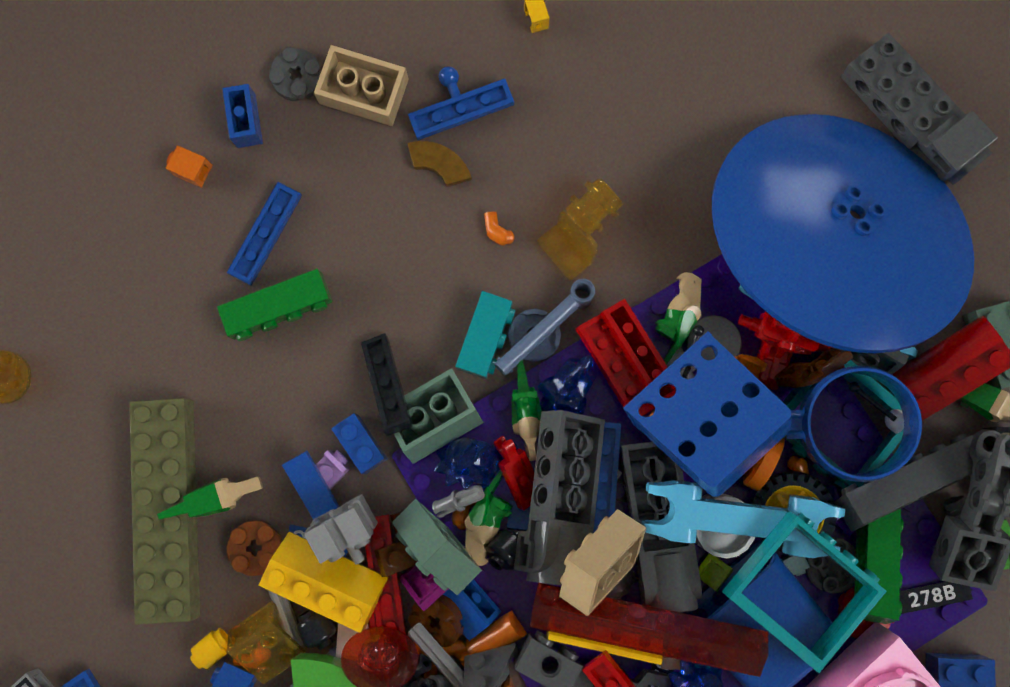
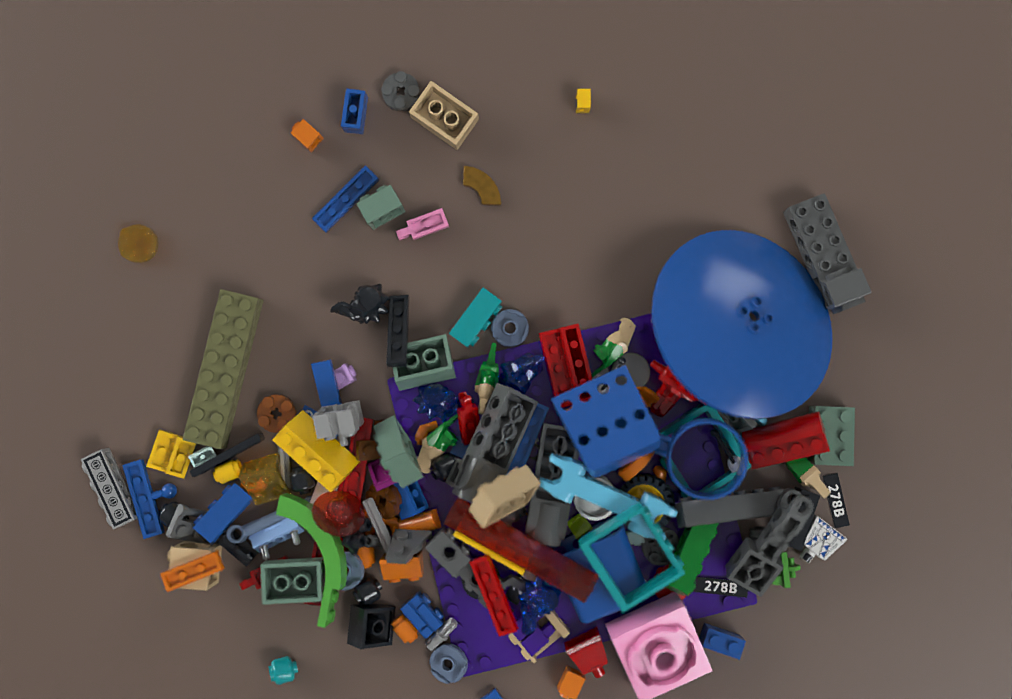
camera: 15 degrees right, 5 degrees up
(125, 650) = (170, 454): none -> yellow slope
(169, 639) = (202, 456): none -> light aqua piece
(203, 626) = (230, 453): none -> black tile
(213, 498) = (258, 372): animal -> none
(275, 304) = (338, 251): green brick -> none
(314, 226) = (380, 206): none -> sand green brick
(332, 365) = (366, 306): none -> black head
(359, 443) = (367, 365): blue brick -> none
(378, 235) = (424, 225): none -> bright pink plate
(458, 500) = (422, 425): light grey axle -> none
(460, 107) = (508, 152): blue plate -> none
(495, 232) = (505, 248): orange arm -> none
(546, 326) = (519, 325): sand blue piece -> none
(569, 246) = (552, 275): clear yellow bracket -> none
(594, 206) = (578, 252): clear yellow piece -> none
(806, 374) = (684, 414): reddish brown plate -> none

